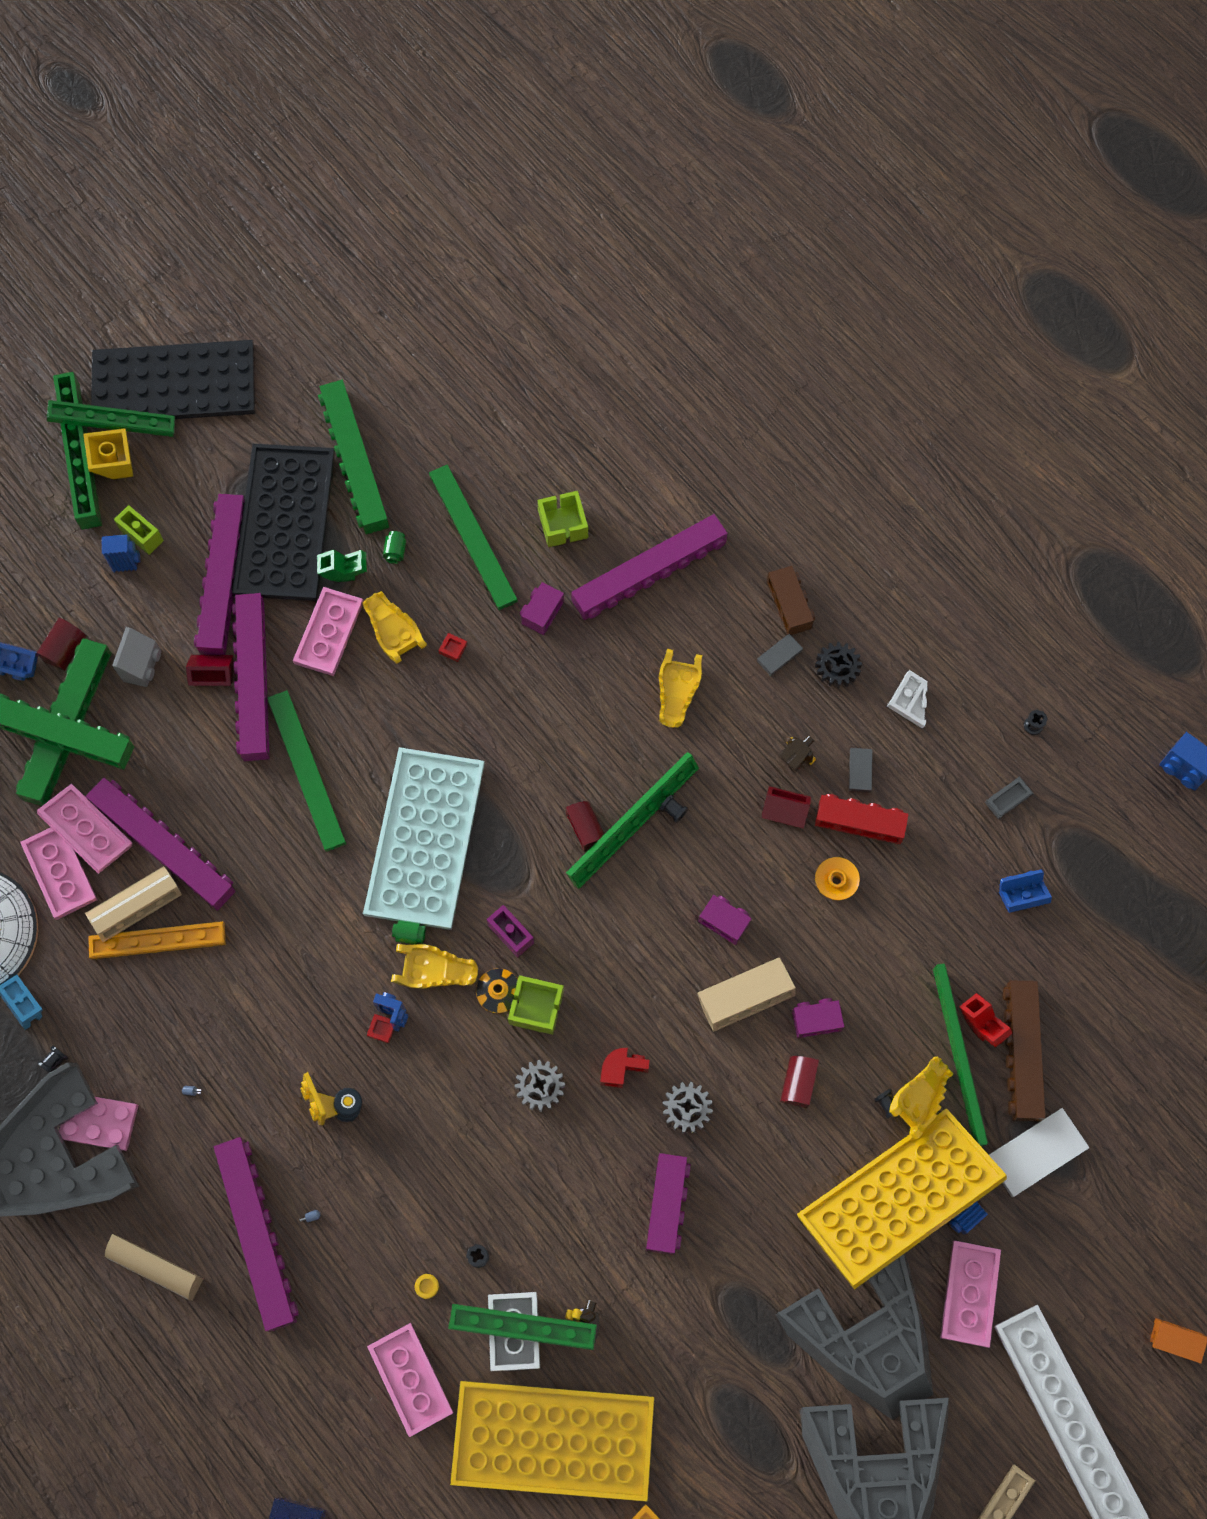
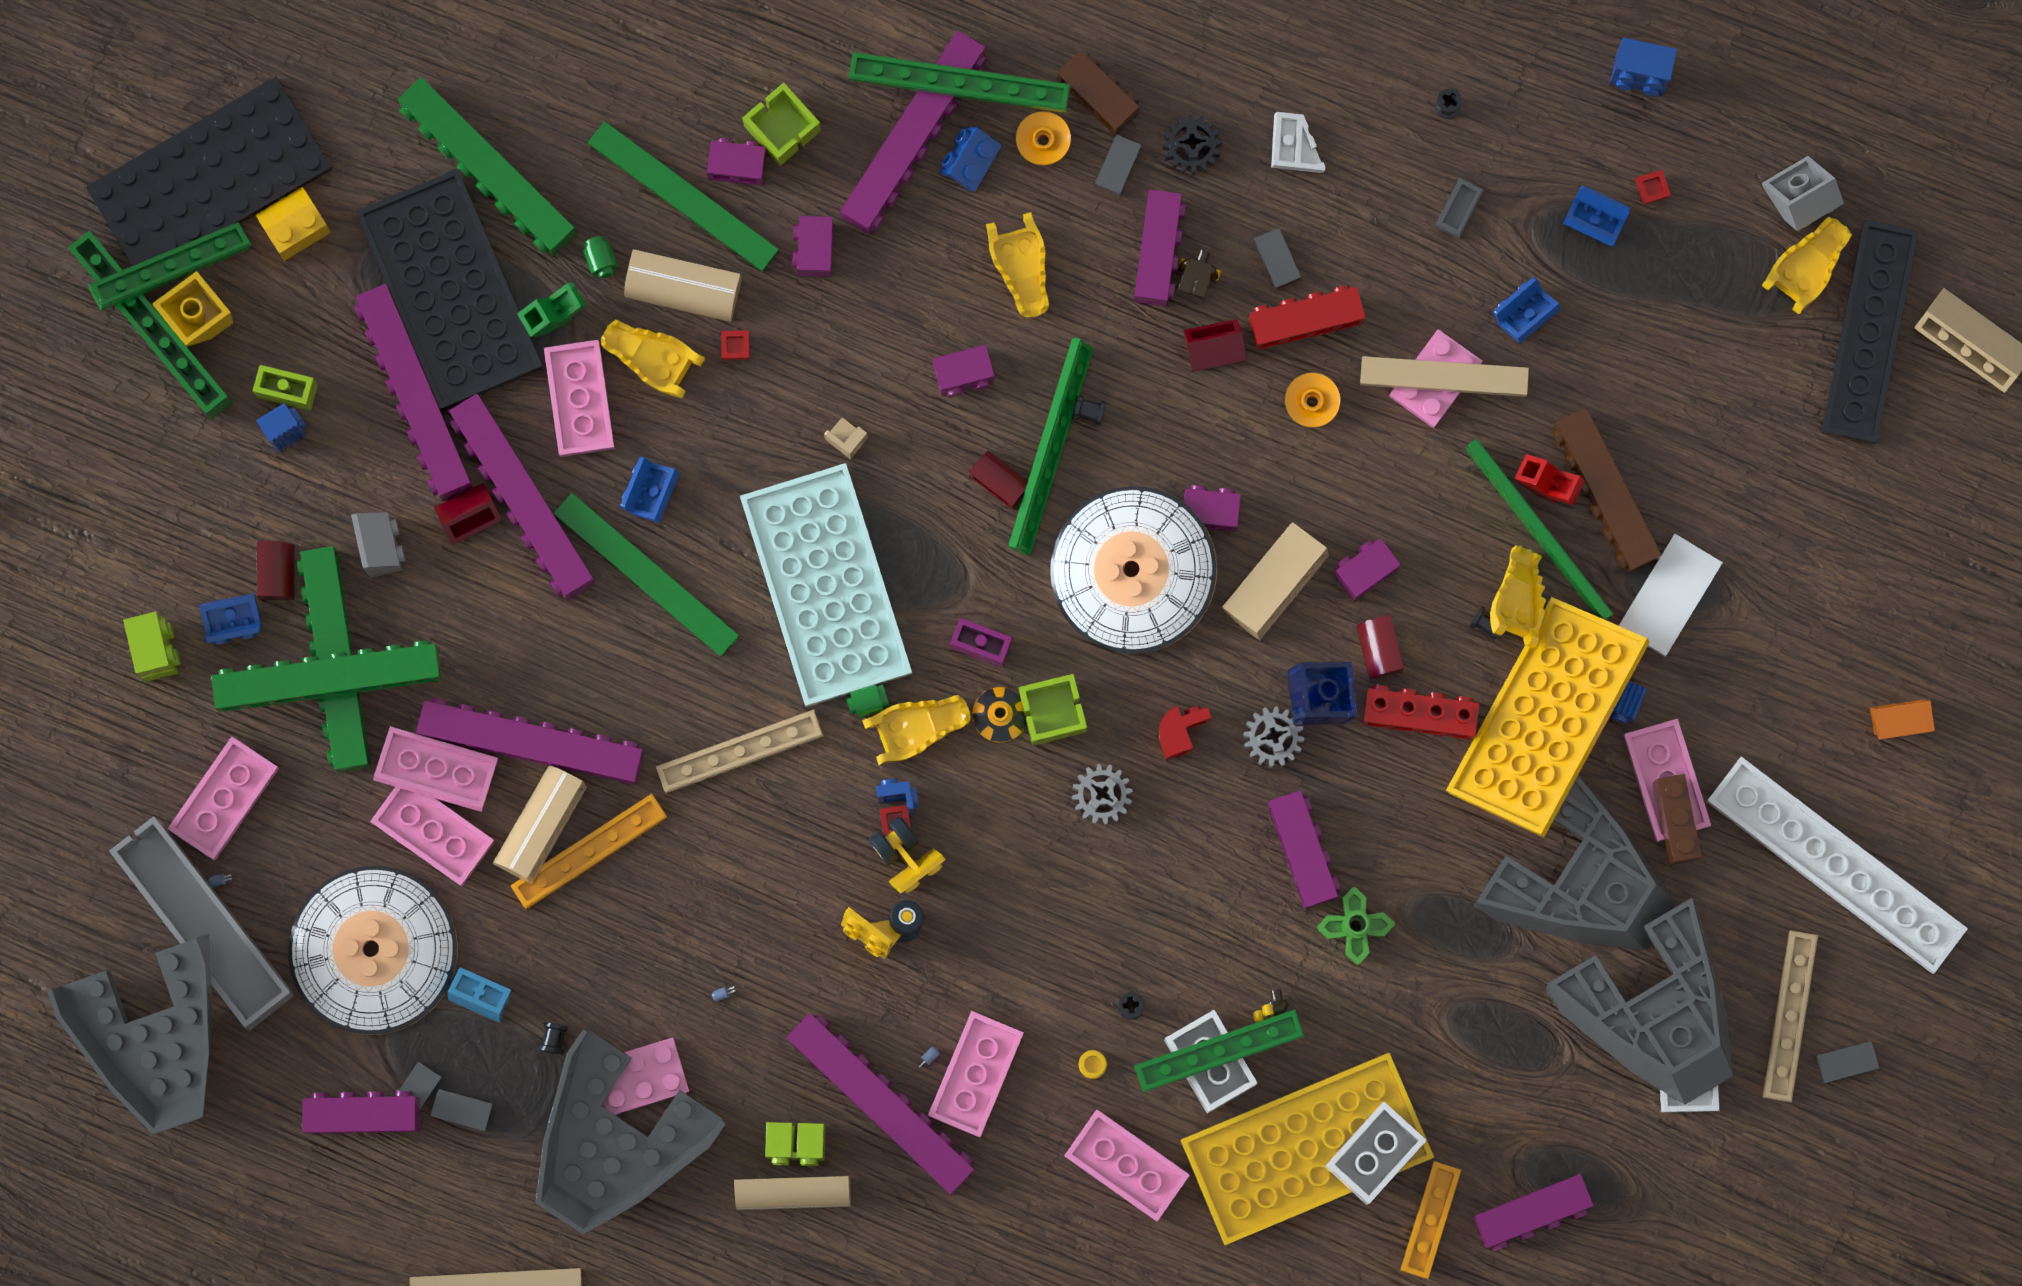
camera: 25 degrees left, 10 degrees up
(172, 1227) = (810, 1143): none -> lime piece
(208, 434) = (293, 223): none -> yellow slope
(300, 923) = (739, 751): none -> tan tile
(336, 1248) = (975, 1074): none -> bright pink plate
(339, 713) = (649, 490): none -> blue bracket
(365, 1043) = (903, 835): none -> plate
(439, 591) = (682, 285): none -> tan brick
(494, 745) = (846, 437): none -> tan panel
(520, 530) = (736, 162): none -> magenta brick
(599, 739) = (963, 371): none -> magenta brick
(601, 1474) = (1375, 1153): none -> white brick
(653, 965) = (1173, 577): none -> dish
(680, 601) = (970, 157): none -> blue bracket
(690, 1288) = (1355, 911): none -> bright green plant
(698, 547) = (959, 82): none -> green tile
(736, 603) = (1043, 125): none -> light orange dish
(739, 1092) = (1322, 693): none -> clear blue brick
(779, 721) = (1157, 248): none -> magenta brick
(806, 1146) = (1420, 713): none -> red brick
(934, 908) = (1432, 404): none -> bright pink plate
(942, 908) = (1444, 376): none -> tan tile
(965, 1329) = (1677, 819): none -> reddish brown brick
(1108, 849) = (1597, 215): none -> blue bracket
(1158, 850) = (1652, 187): none -> red plate

